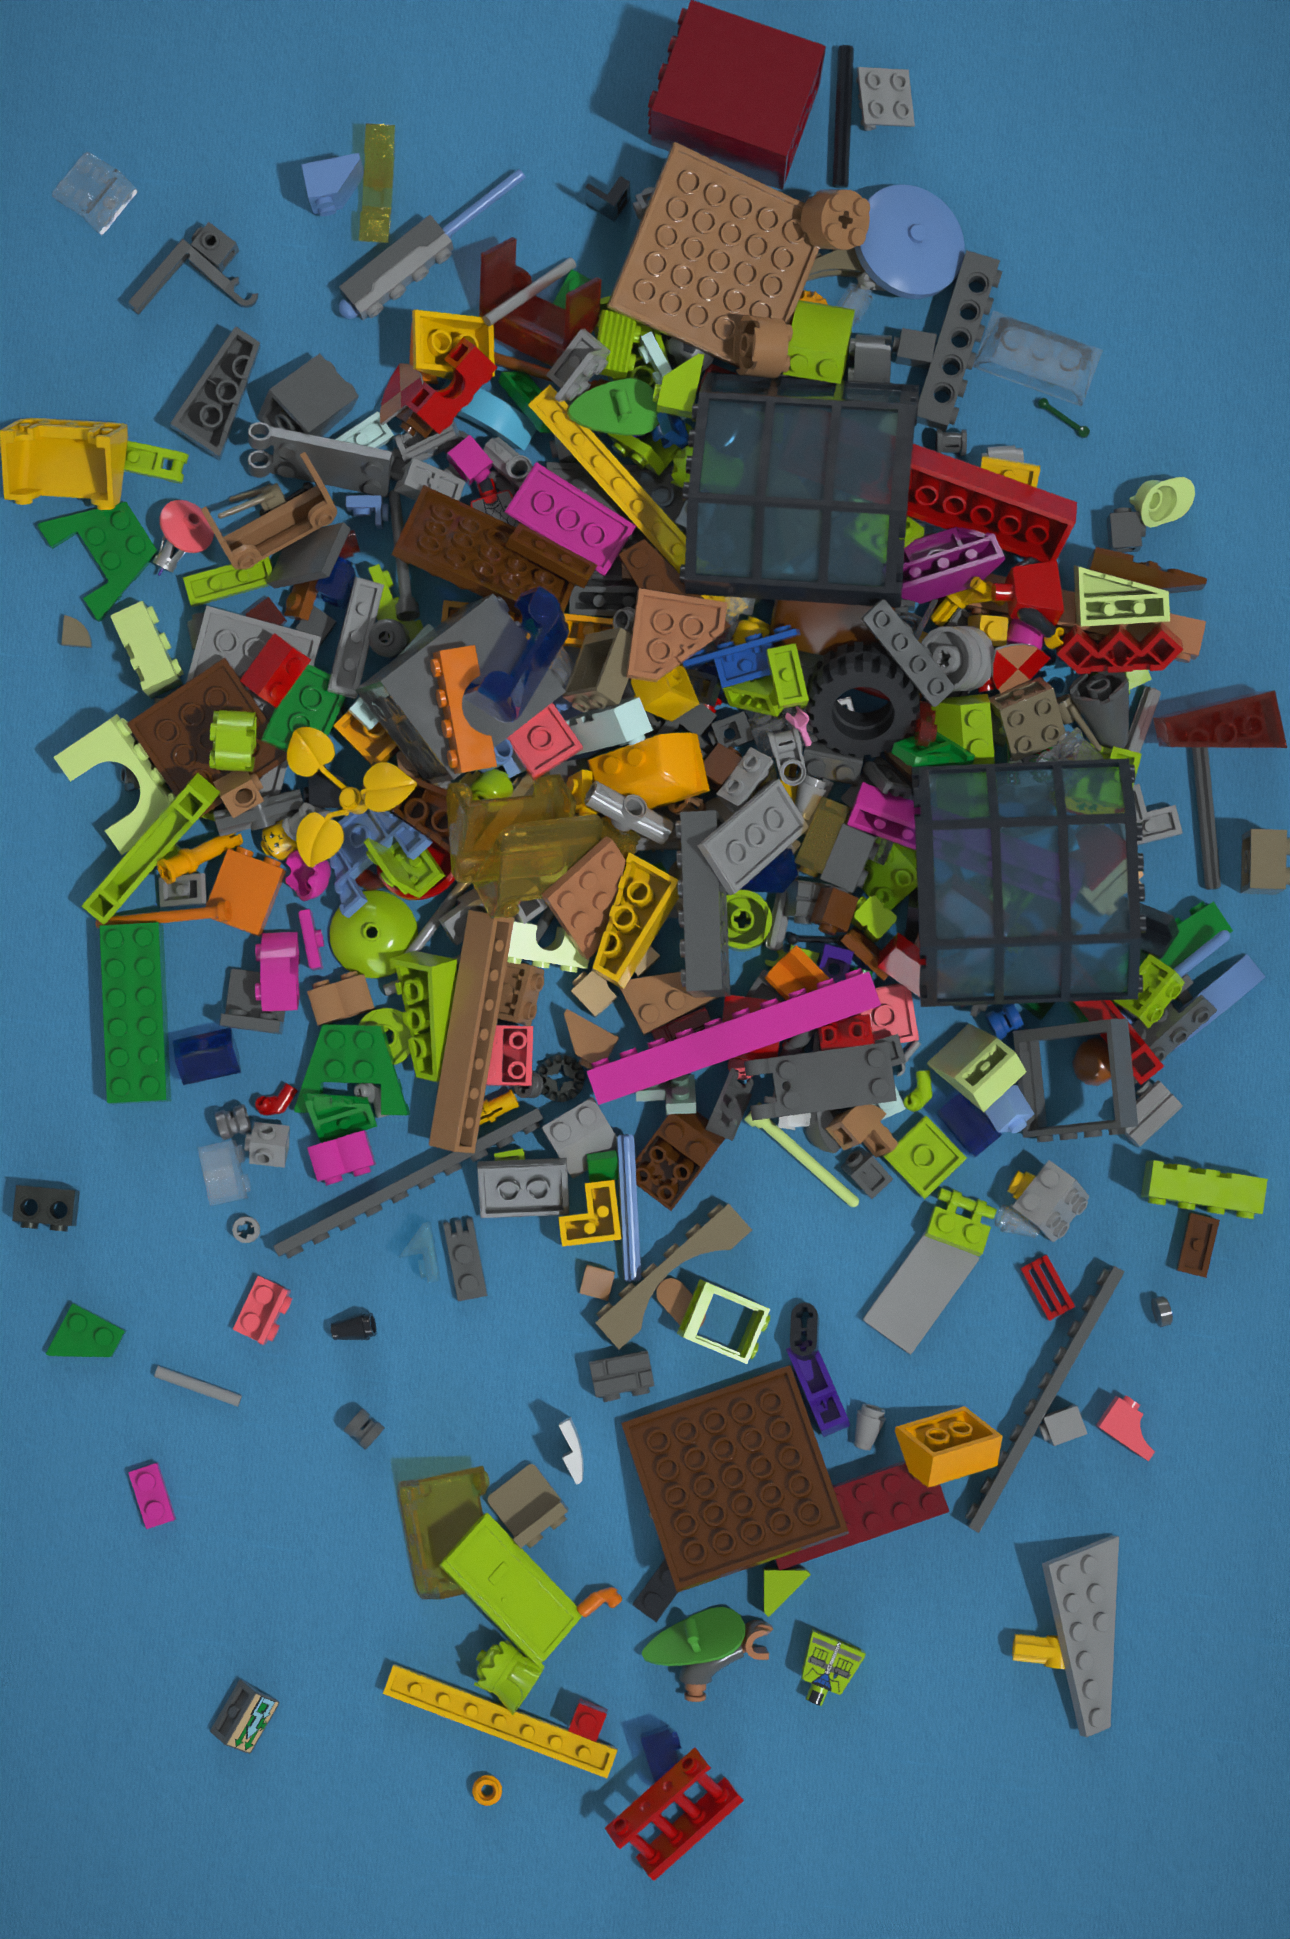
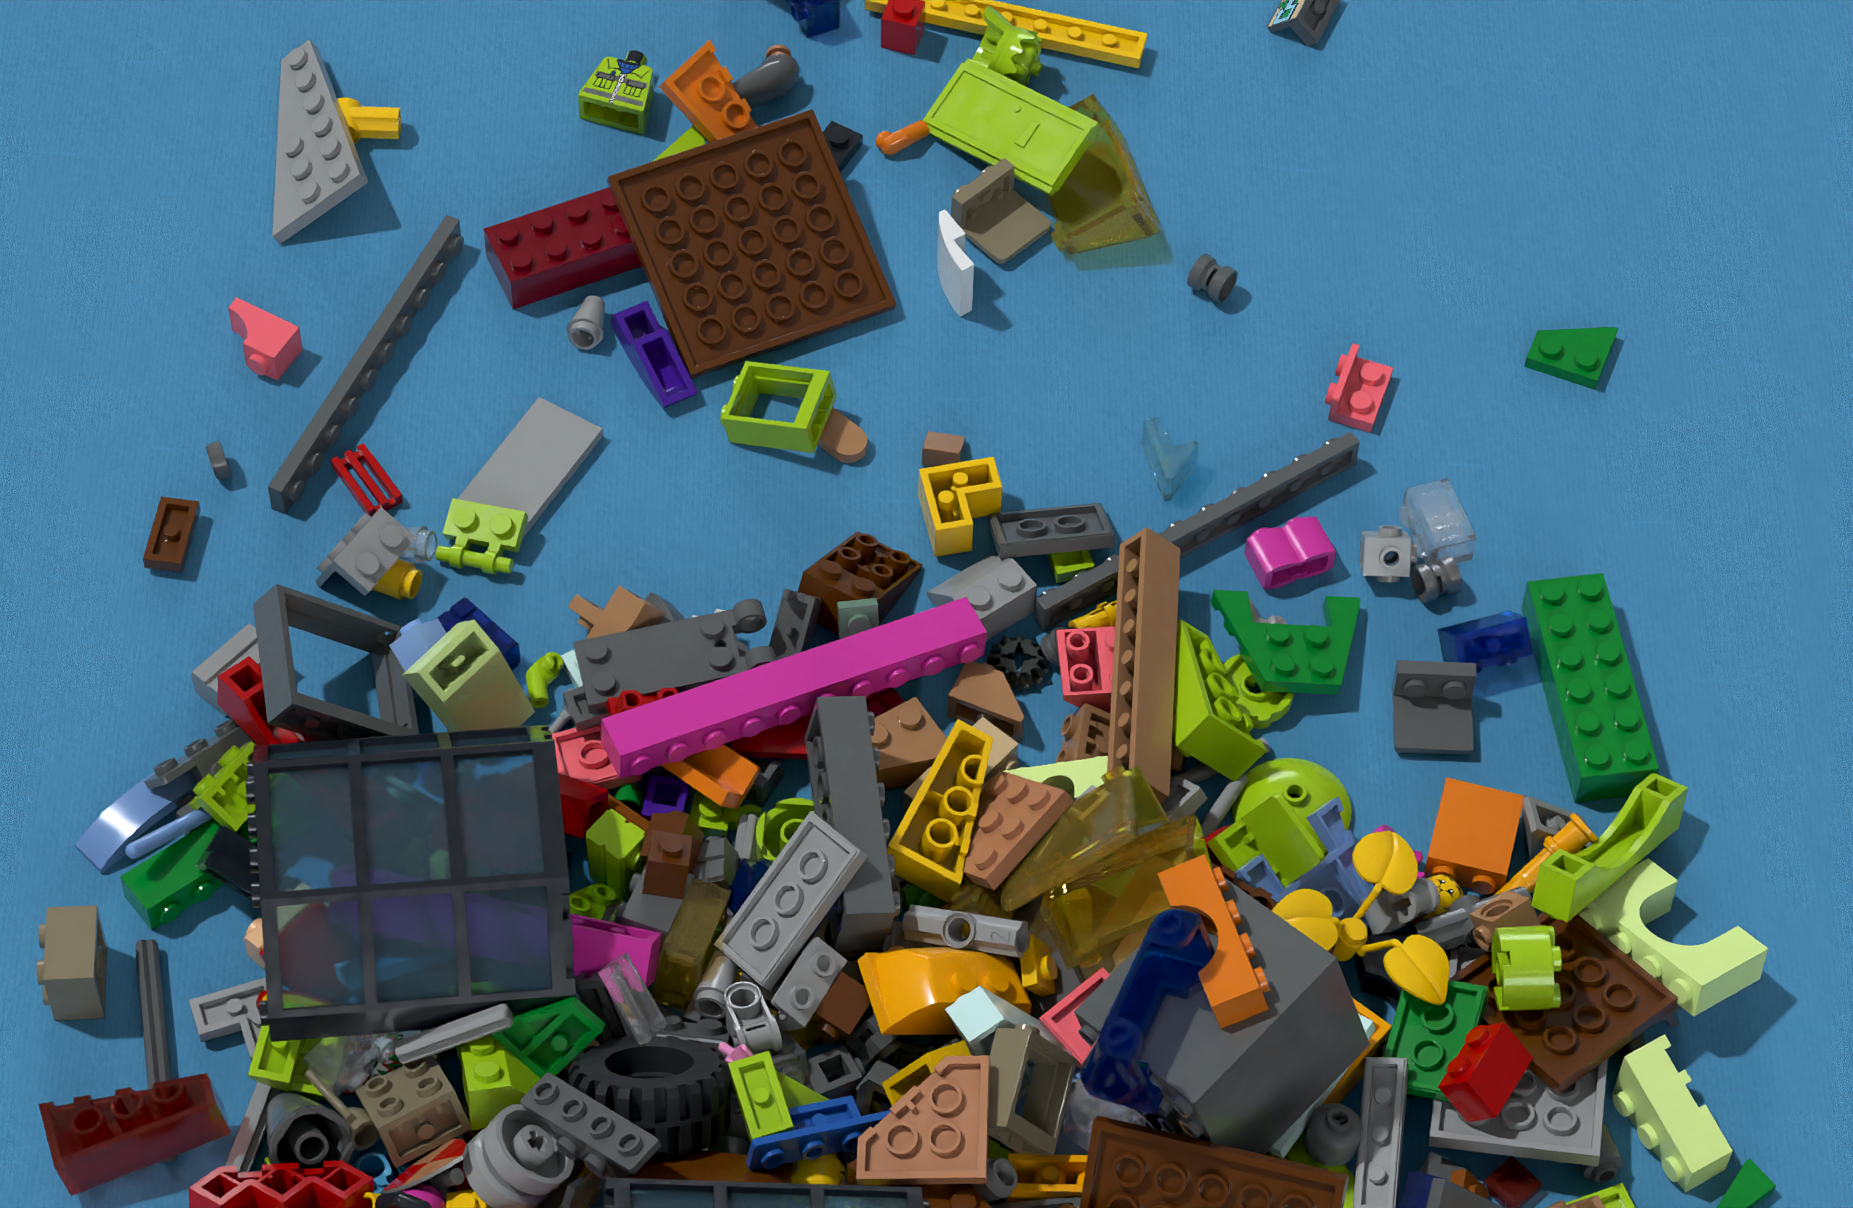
camera: 170 degrees right, 30 degrees down
(46, 1200) = (1654, 475): pearl dark grey brick -> none
(75, 634) = (1776, 1142): dark tan tile -> none
(152, 1495) = (1457, 205): dark pink plate -> none
(198, 1386) = (1424, 313): light grey bar -> none
(222, 911) = (1498, 792): orange bar -> none
(250, 1237) = (1398, 462): light grey bush -> none
(276, 1104) = (1385, 607): red arm -> none
(278, 971) = (1410, 741): dark pink brick -> none
(312, 939) = (1372, 787): dark pink plate -> none
(339, 1115) = (1300, 591): green wing -> none
(340, 999) = (1322, 723): medium nougat brick -> none
(355, 1327) = (1238, 379): black cone -> none
(465, 1261) = (1113, 459): dark grey hinge -> none
(602, 1166) = (951, 564): green tile -> none
(621, 1375) = (901, 351): dark grey brick -> none
(626, 1317) = (797, 500): dark tan arch -> none
(628, 1207) = (912, 523): medium blue axle -> none
(697, 1639) = (789, 92): bright green shield -> none
(754, 1621) = (707, 96): none -> orange wing
(797, 1331) = (666, 407): black beam -> none
(806, 1159) = (687, 594): yellowish green piece -> none
(840, 873) = (667, 864): none -> reddish brown brick
(866, 1172) = (603, 577): dark grey bracket -> none
(871, 770) = (633, 998): none -> clear tile
(925, 1157) = (530, 605): lime plate -> none
(926, 729) = (559, 1049): clear red plate -> none
(948, 1446) = (489, 289): light orange slope -> none
(998, 754) = (454, 1033): none -> light grey axle
(1062, 1425) = (341, 334): light grey brick -> none
(1203, 1188) = (166, 588): lime wedge -> none

